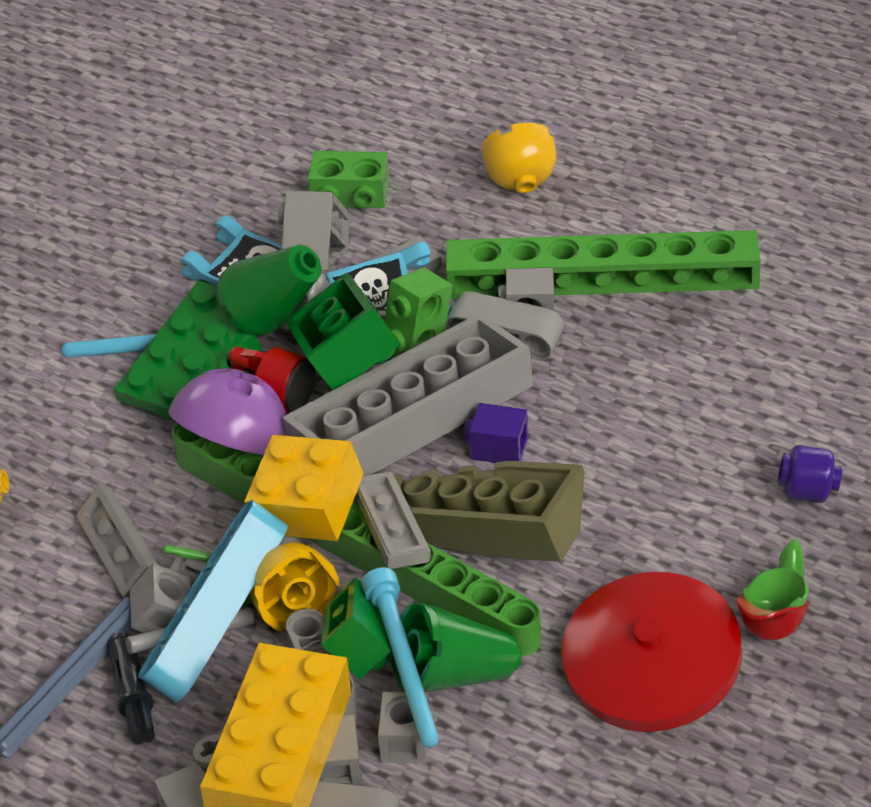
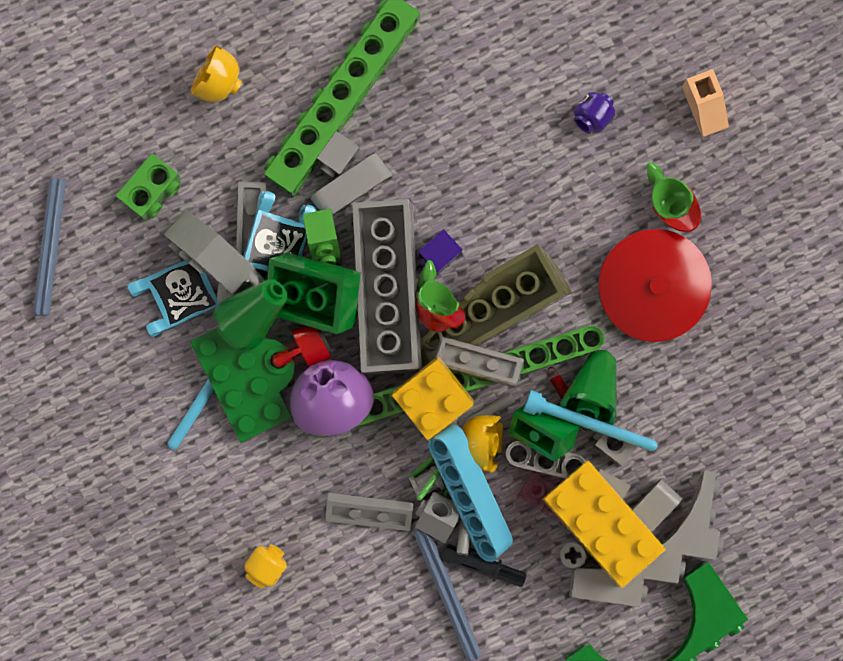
camera: 60 degrees left, 40 degrees up
(214, 151) = (49, 247): none -> sand blue axle
(427, 440) = (436, 303): none -> bright green hair

